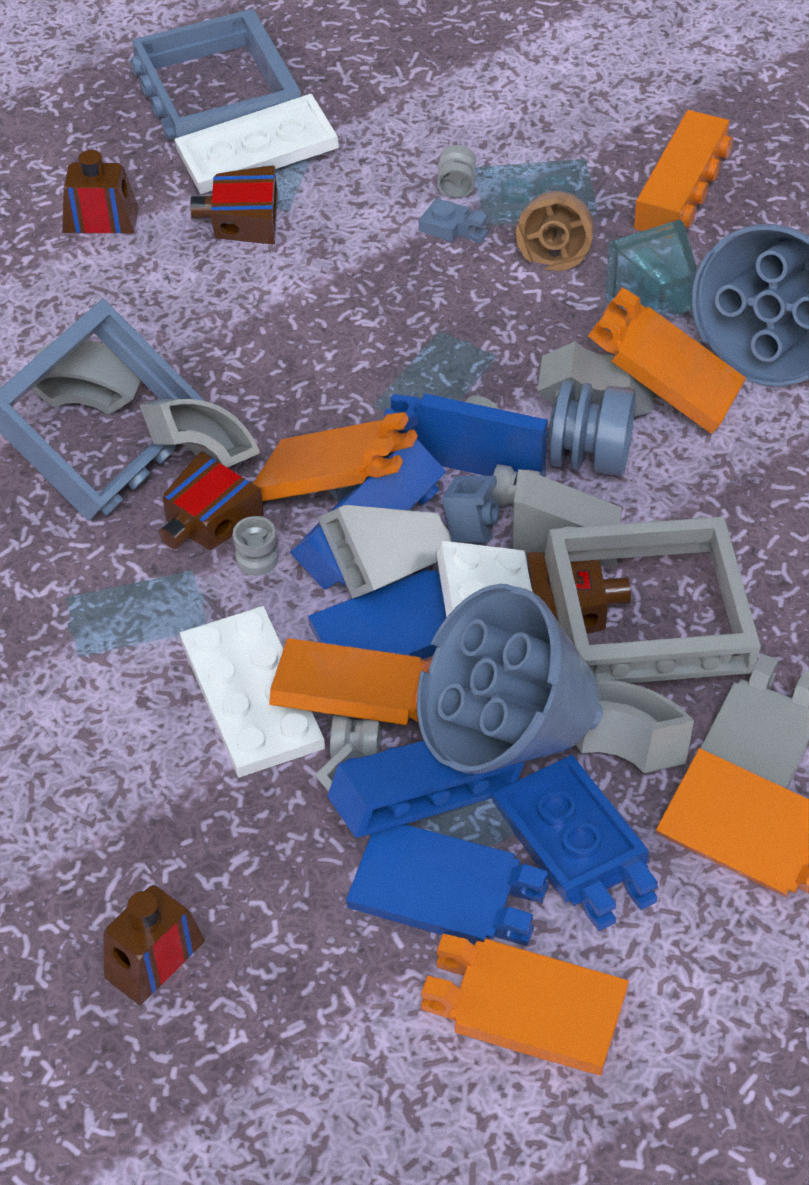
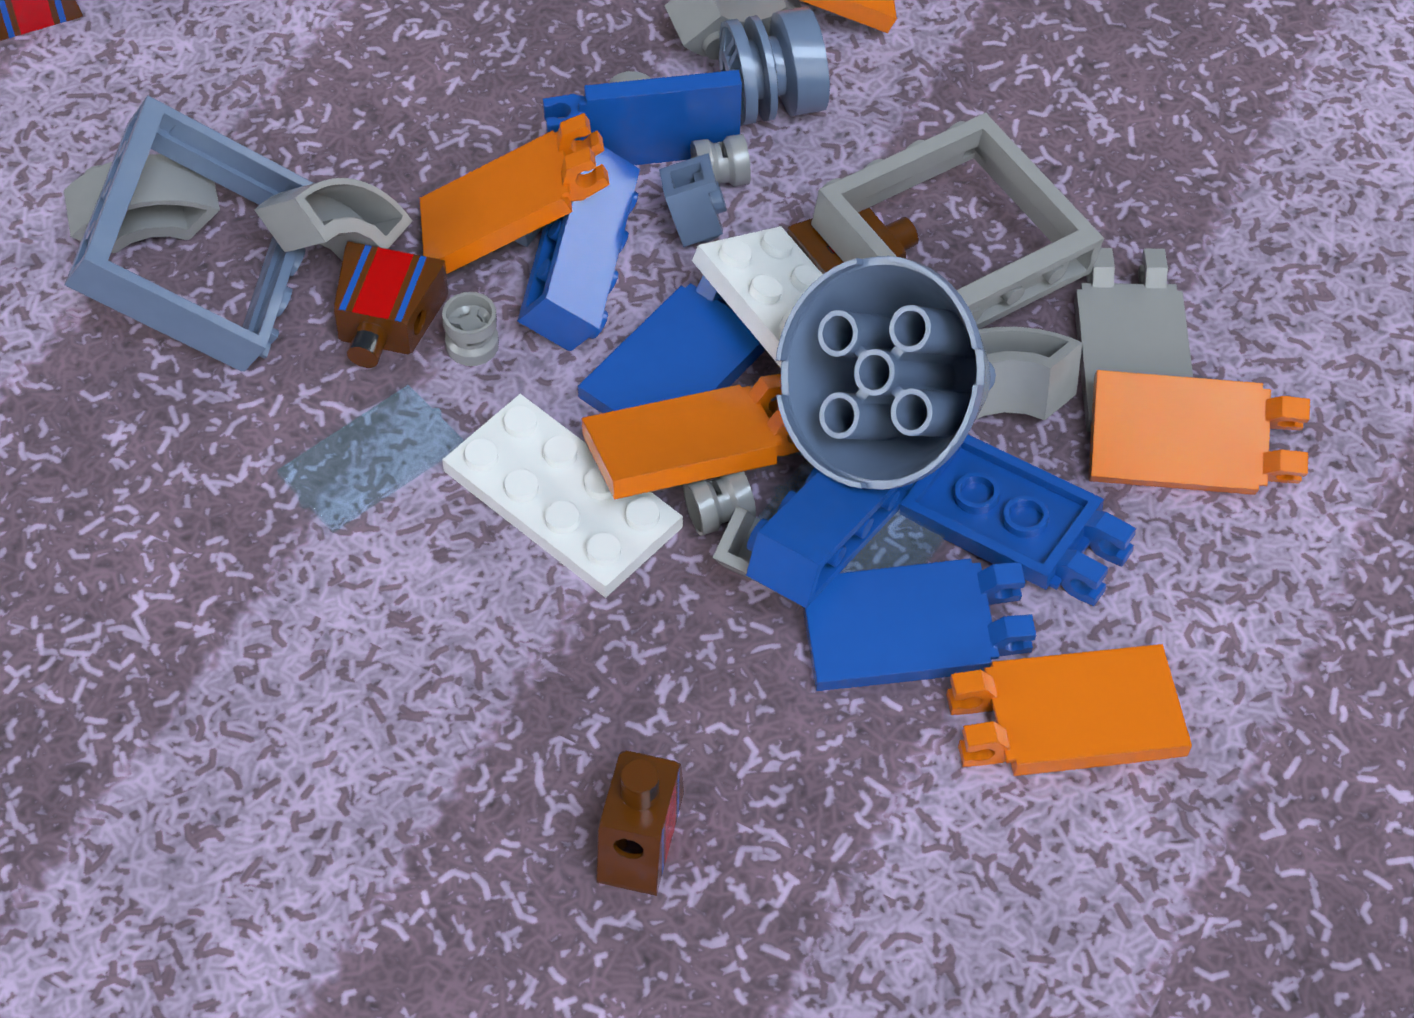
camera: 30 degrees left, 5 degrees up
(381, 544) = (628, 276): slope -> none
(441, 369) = (547, 62): clear light blue piece -> none
(548, 505) = (785, 173): light grey slope -> none

